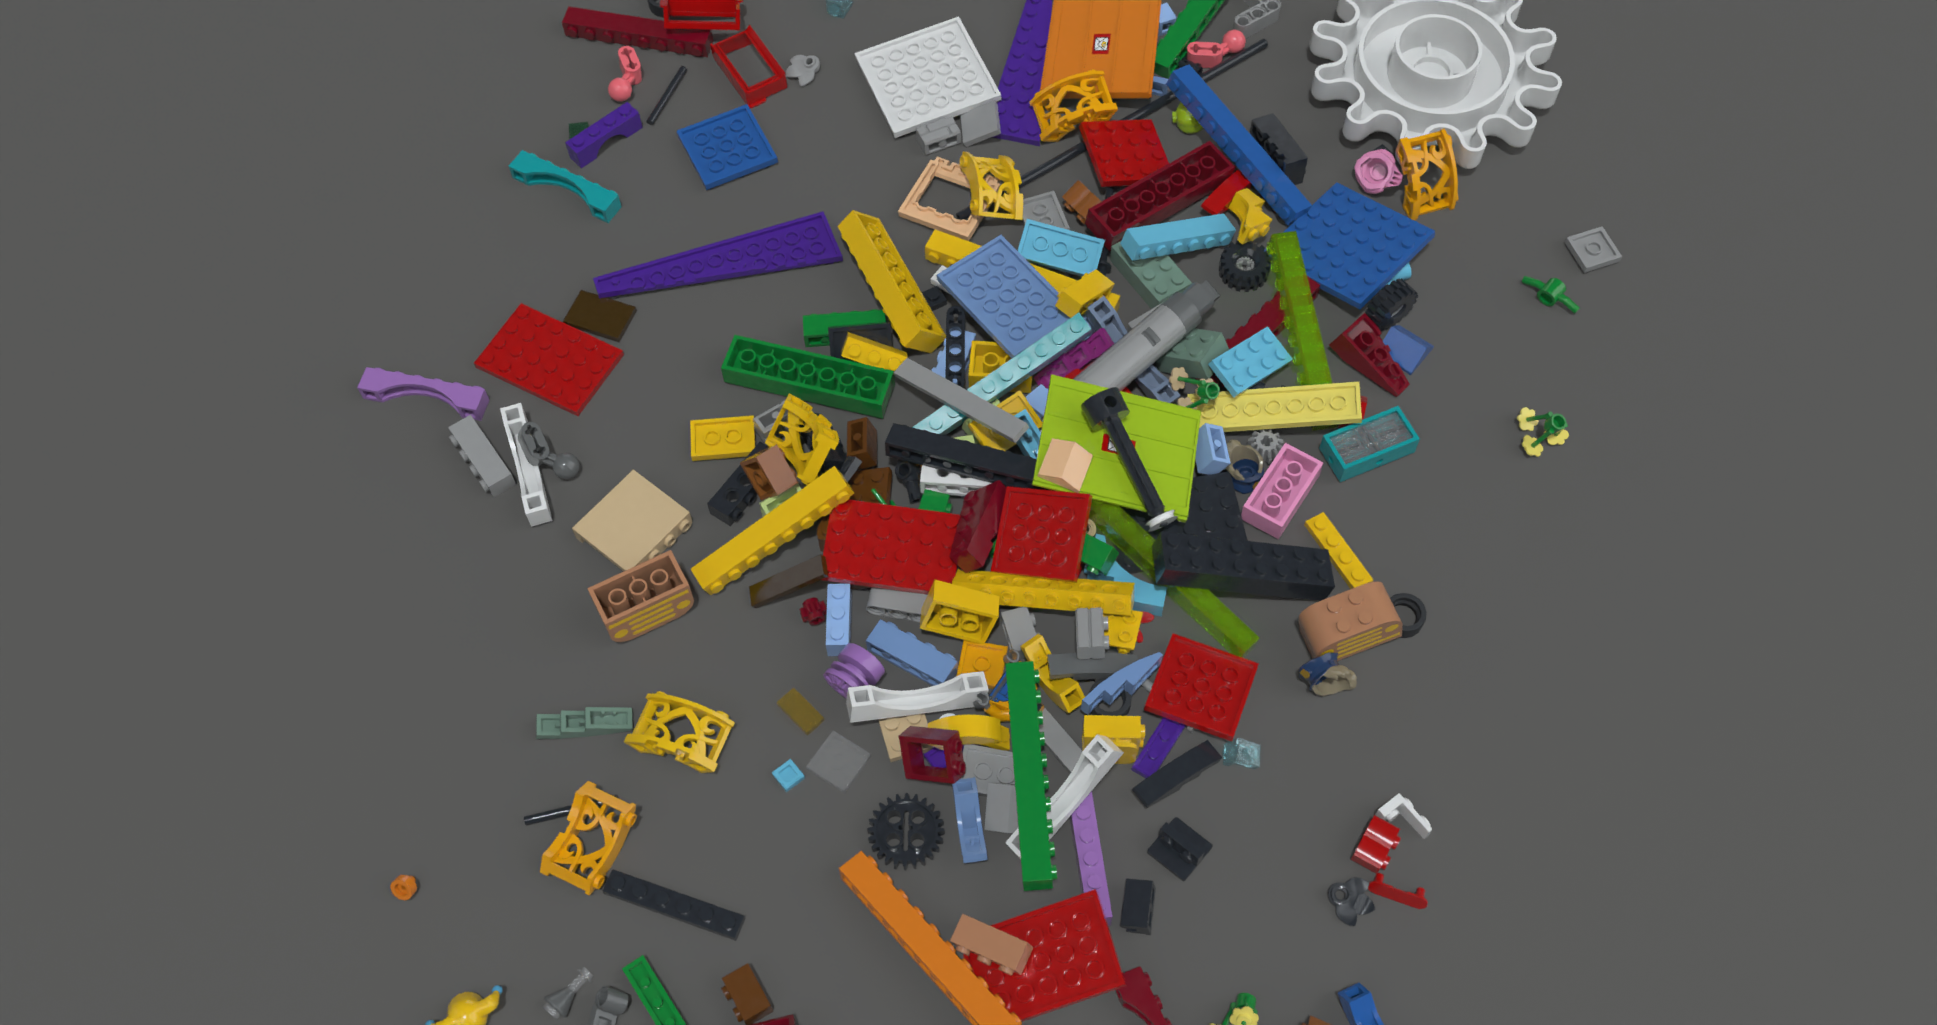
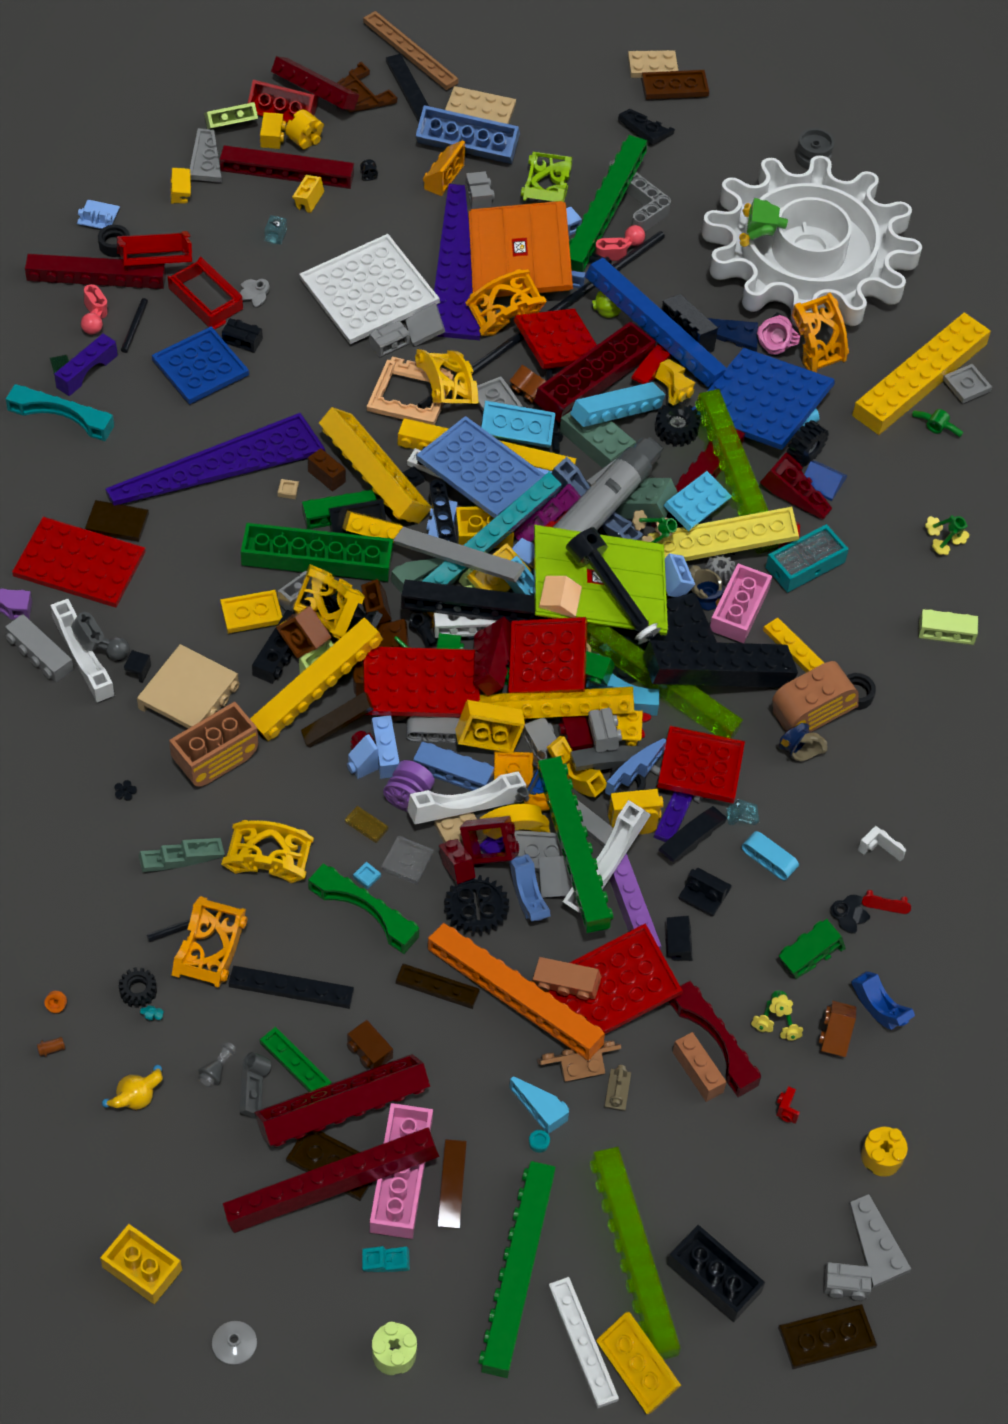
camera: 15 degrees left, 5 degrees down
(386, 942) = (50, 1046): none -> dark orange pin
(505, 894) = (137, 998): none -> black tyre
(508, 915) = (150, 1012): none -> teal plant
(539, 636) = (125, 790): none -> black plant
(584, 487) = (139, 664): none -> black panel
(744, 785) = (332, 886): none -> green arch
(778, 116) = (242, 335): none -> black brick
(793, 298) = (288, 489): none -> tan tile
(809, 631) = (363, 758): none -> light blue slope
(838, 280) = (326, 469): none -> reddish brown brick
(842, 927) = (437, 986): none -> dark brown tile
(892, 774) = (457, 861): none -> dark red brick
(911, 411) = (413, 570): none -> sand green slope
(1061, 631) = (576, 732): none -> dark red brick
(1083, 293) = (546, 457): yellow brick -> none
(1265, 813) = (770, 855): none -> medium azure beam
(1295, 943) = (811, 948): none -> green wedge
(1333, 163) = (739, 332): none -> dark blue wing
(1376, 844) = (863, 868): red brick -> none
(1378, 37) = (762, 220): none -> bright green torso
(1526, 547) = (948, 626): none -> yellowish green brick
(1539, 232) = (921, 373): none -> yellow brick

